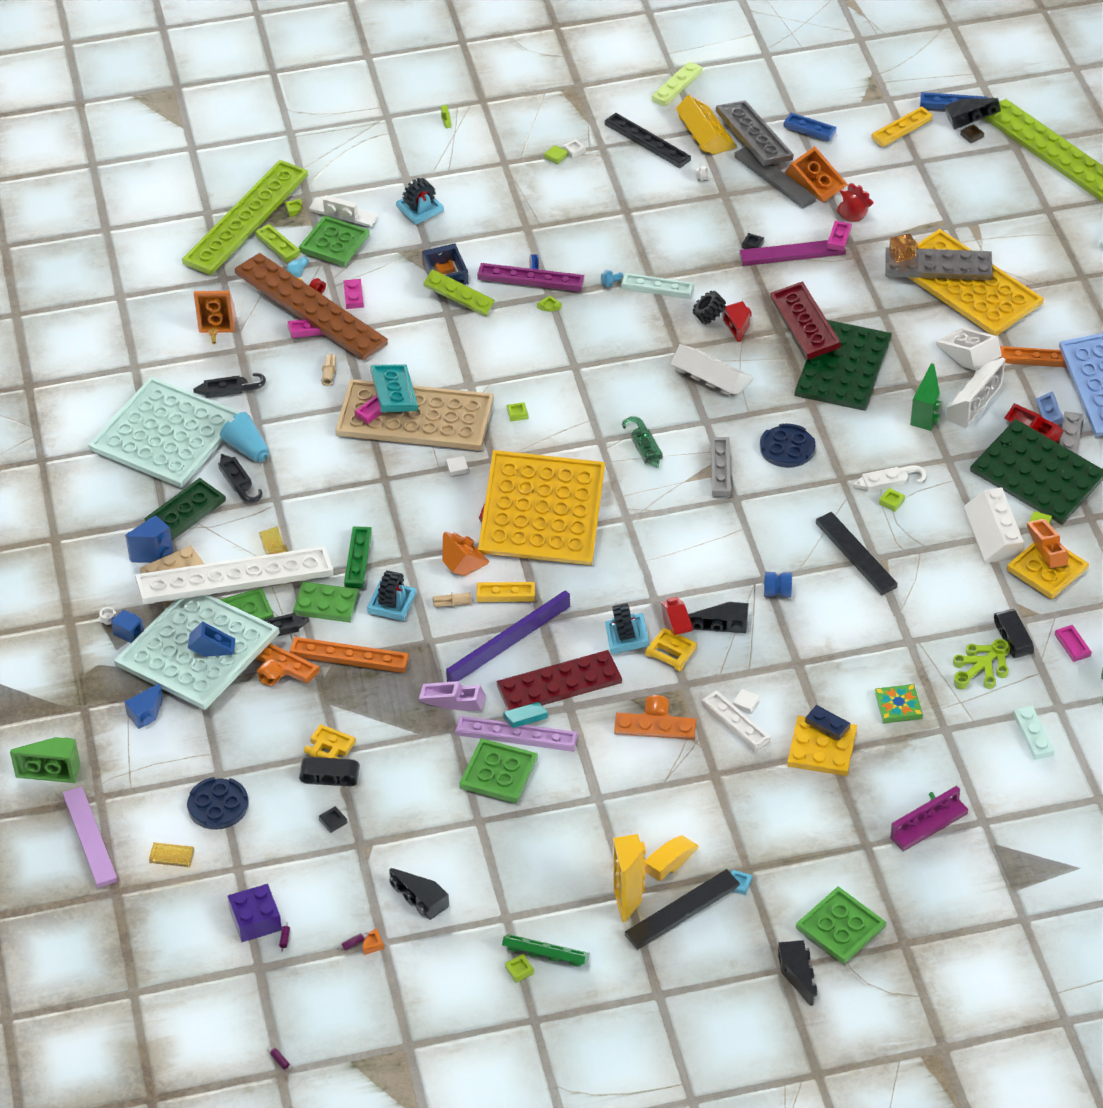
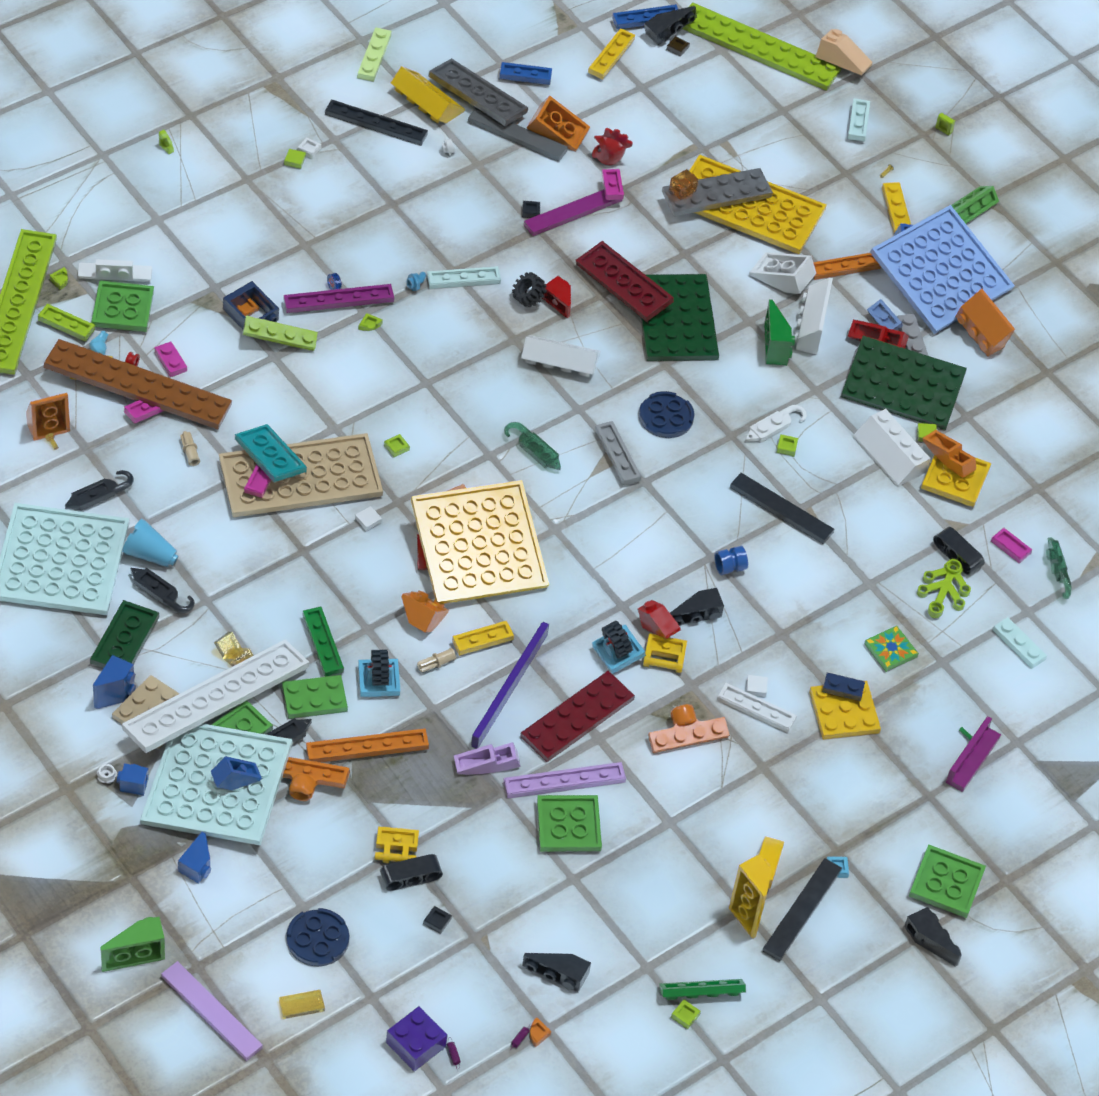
camera: 30 degrees left, 5 degrees up
(419, 201) = (190, 244): plate -> none
(525, 715) = (566, 759): tile -> none

